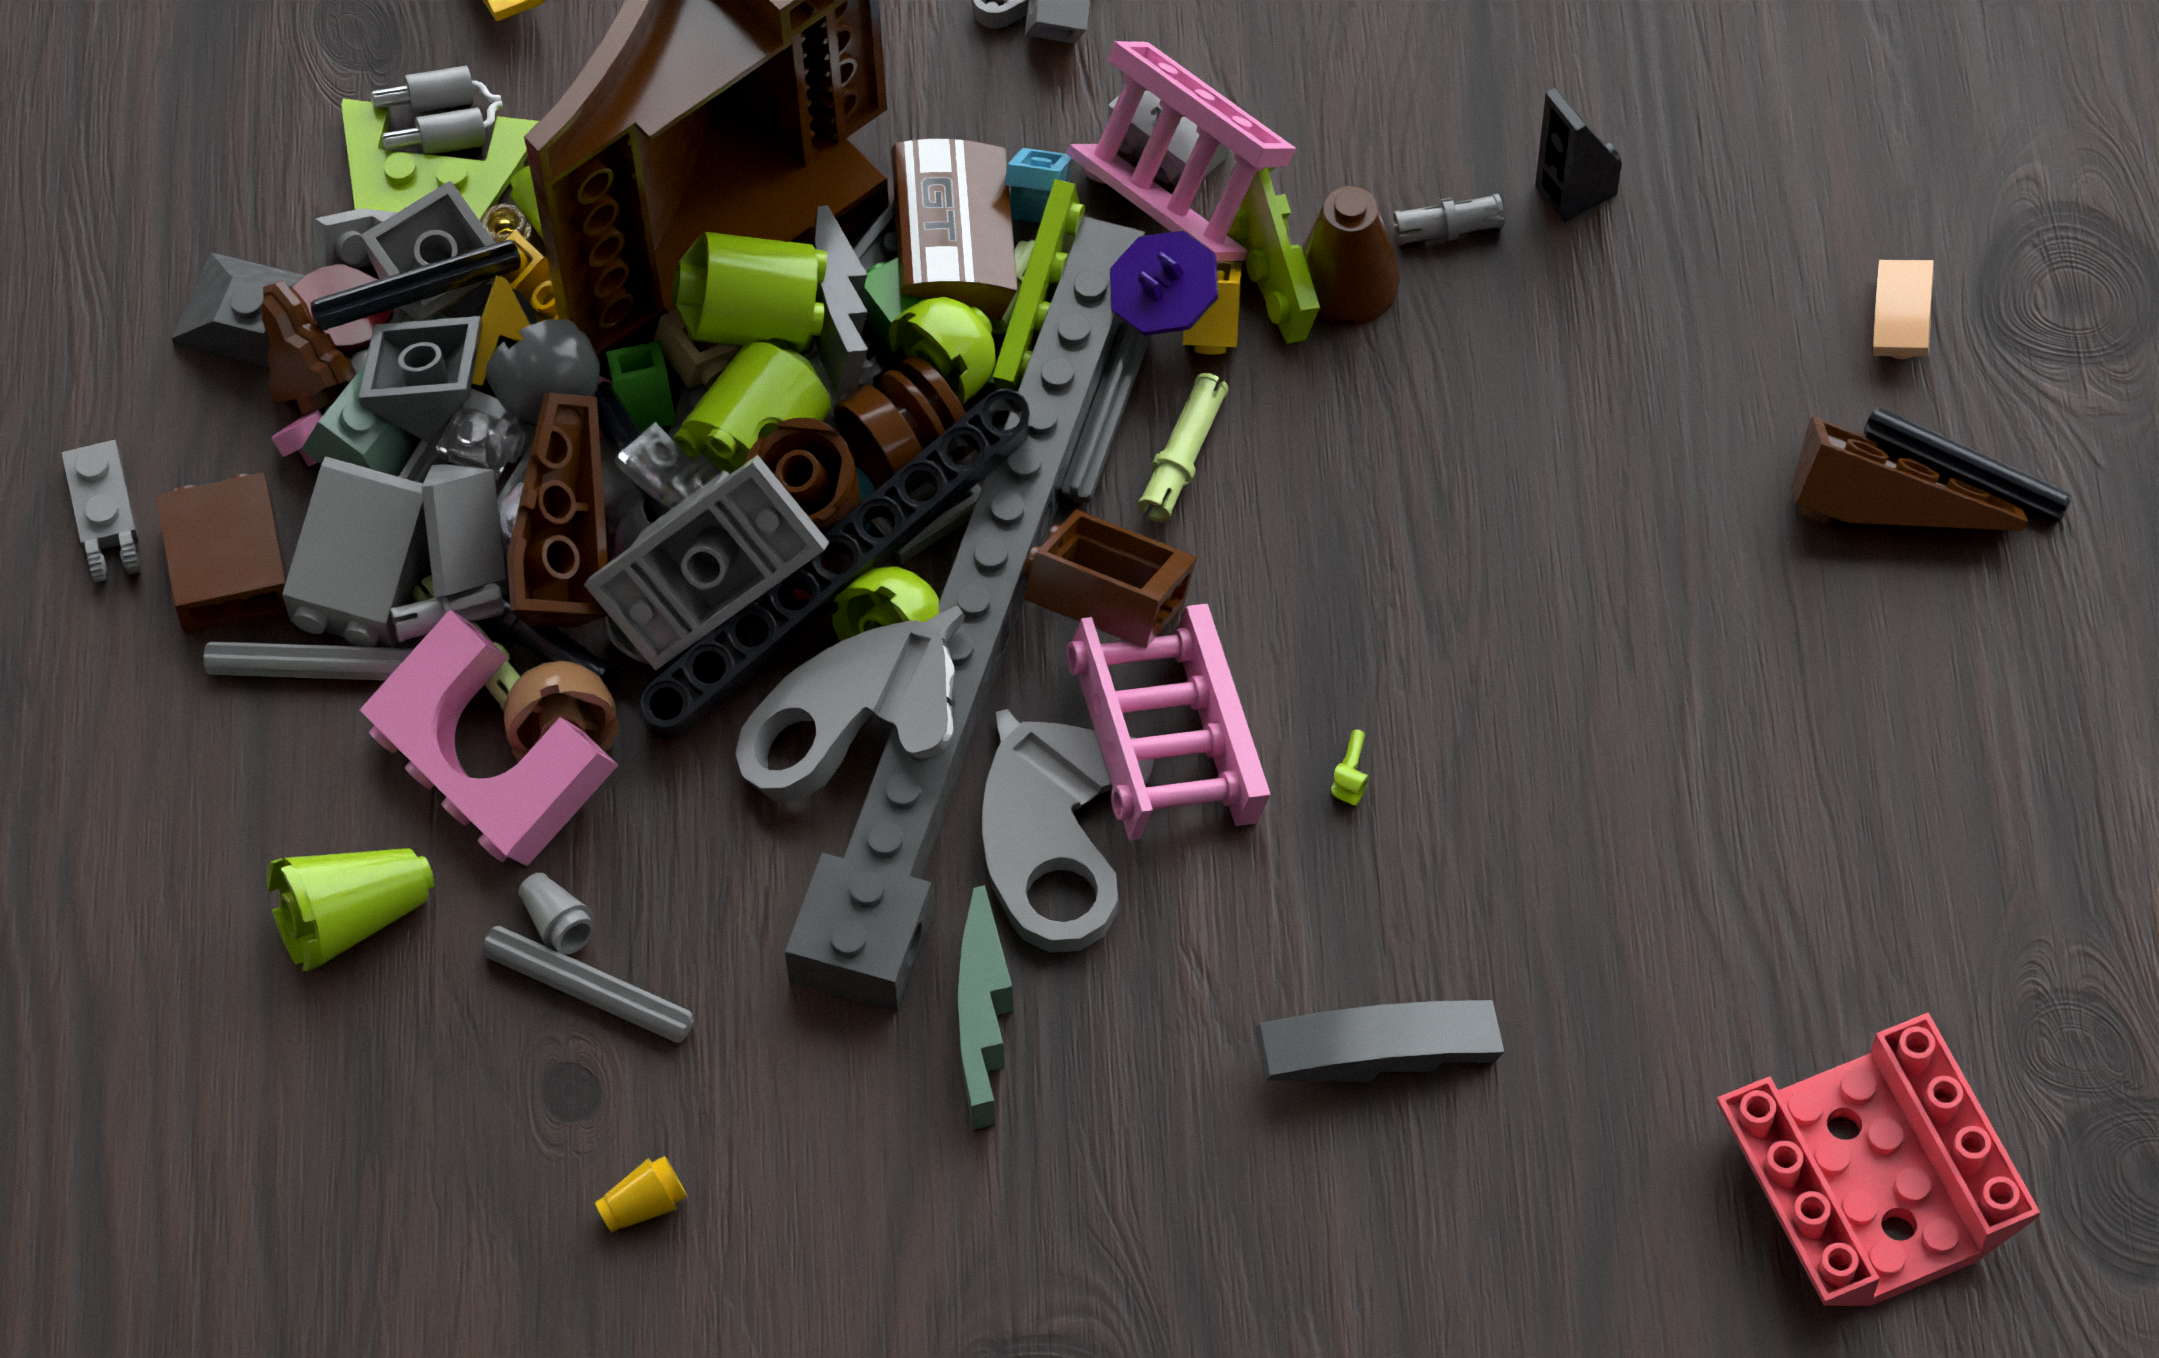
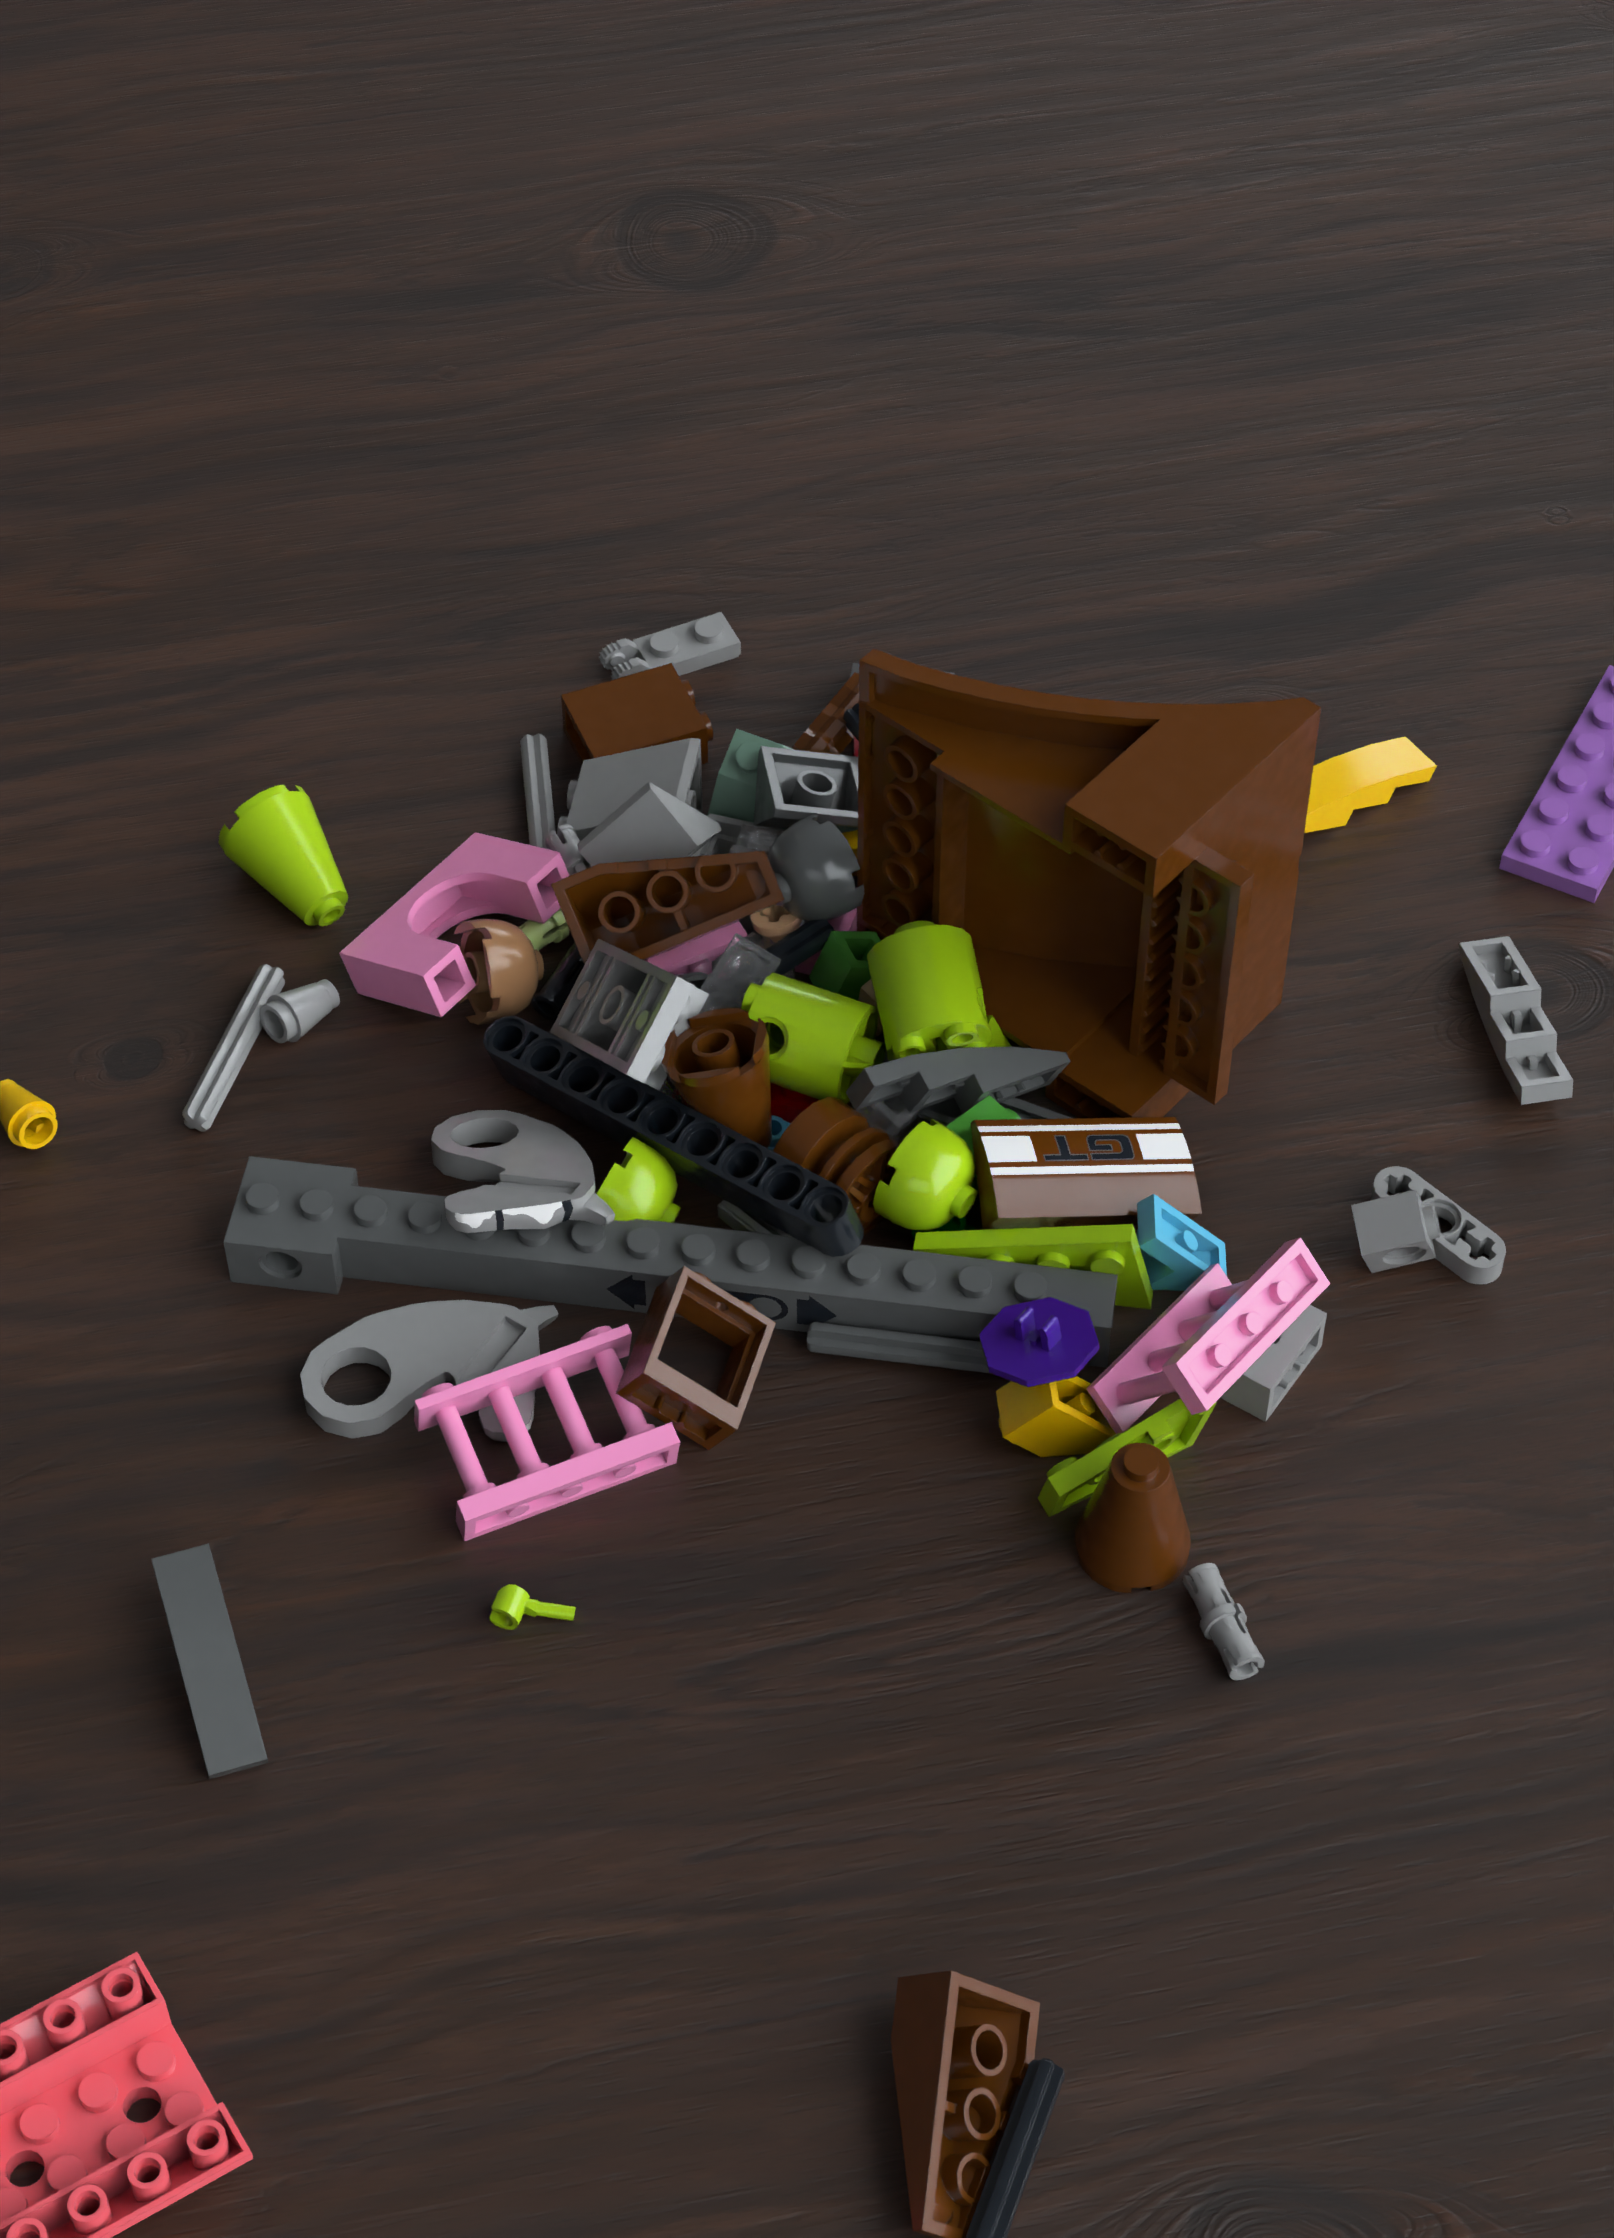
camera: 80 degrees right, 10 degrees down
(982, 995) = (246, 1326): sand green slope -> none
(1174, 464) = (882, 1415): yellowish green pin -> none
(1573, 161) = (1308, 1707): black slope -> none
(1903, 308) = (1196, 2082): light nougat slope -> none

